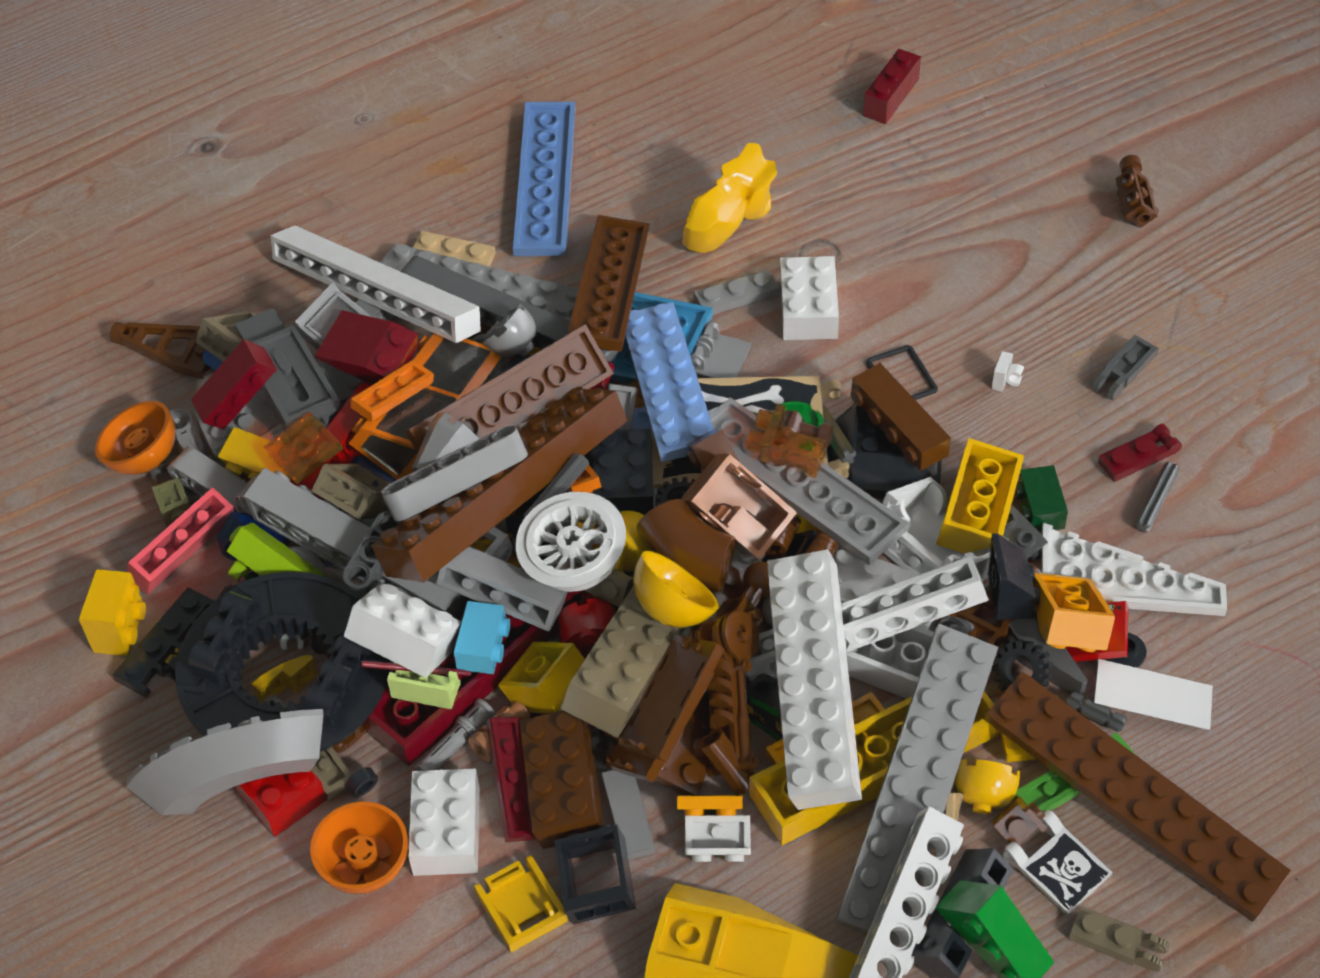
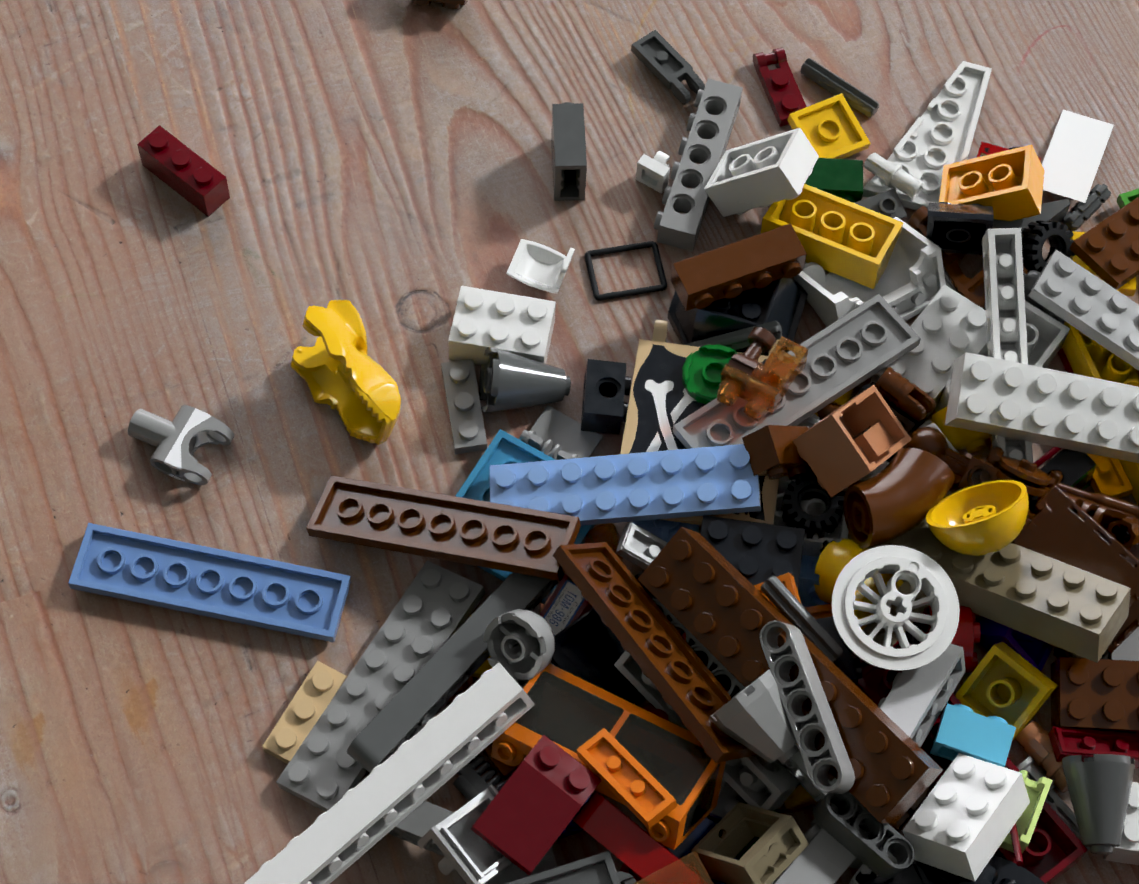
camera: 85 degrees left, 10 degrees up
(449, 744) = (1099, 797): none -> dark grey cone
(656, 135) = (179, 440): none -> light grey connector
(760, 311) = (519, 382): none -> dark grey cone
(765, 363) = (602, 380): none -> black brick
(878, 310) = (539, 266): none -> white piece
(995, 303) = (568, 151): none -> dark grey brick
(1013, 427) = (762, 173): none -> white brick
(1026, 402) = (683, 229): none -> light grey brick
(1061, 539) = (893, 175): none -> white axle
(1099, 490) = (831, 128): none -> yellow plate

